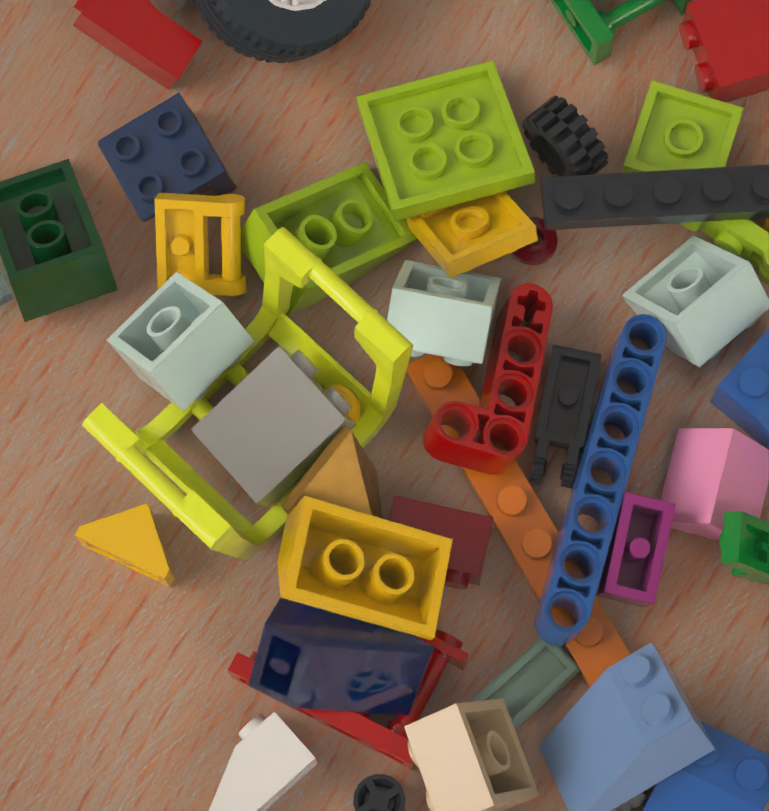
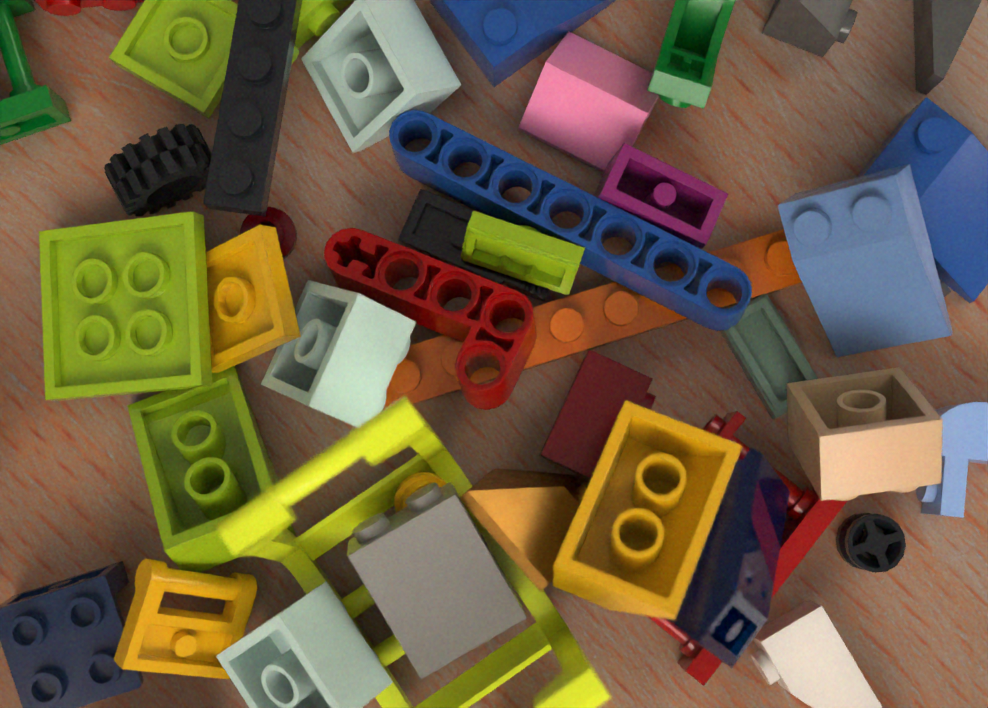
camera: 80 degrees left, 10 degrees up
(562, 443) = (521, 252): none -> lime plate

